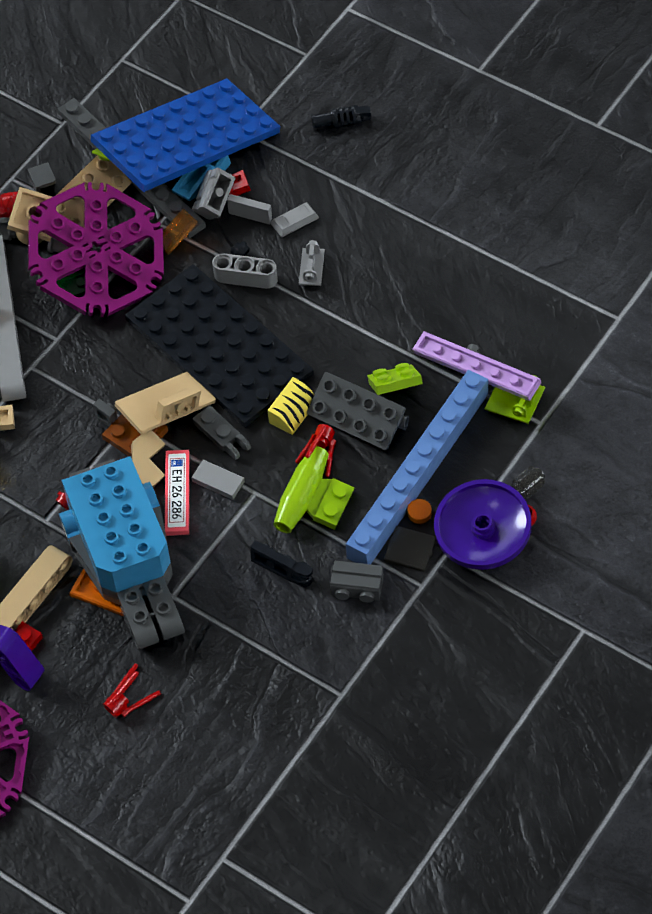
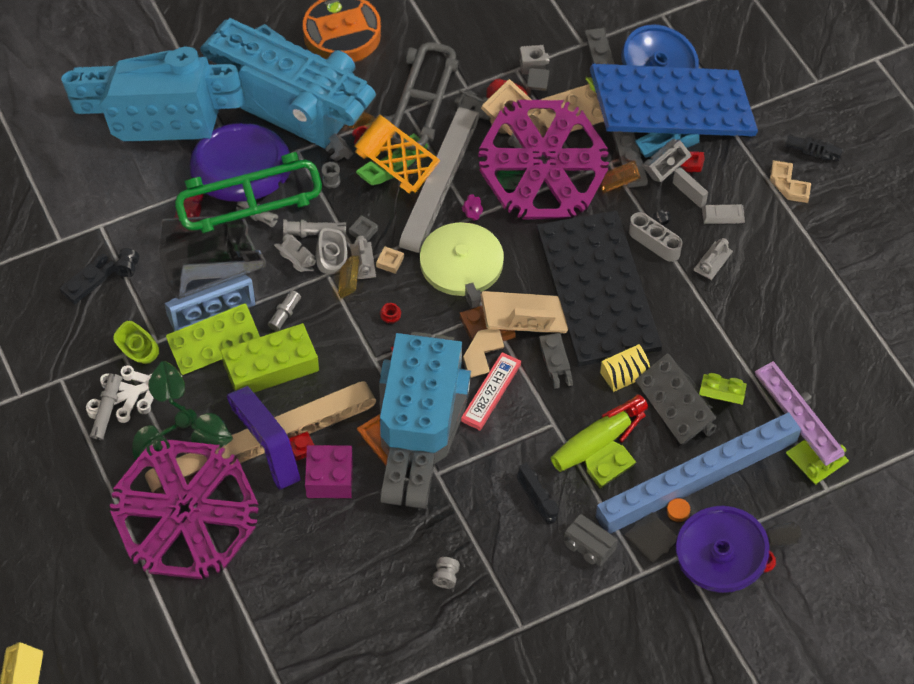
camera: 25 degrees right, 0 degrees up
(23, 158) = (533, 57): none -> light grey brick
(32, 463) = (390, 308): none -> red plate
(52, 328) = (472, 207): none -> magenta plant
(68, 382) = (461, 256): none -> yellowish green dish
(69, 647) = (329, 471): none -> magenta brick
(117, 702) = (340, 535): red plant -> none
(141, 91) = (659, 47): none -> blue dish
(218, 479) = (530, 397): light grey tile -> none
(240, 681) = (446, 572): none -> light grey wheel
(344, 166) = (791, 189): none -> tan tile

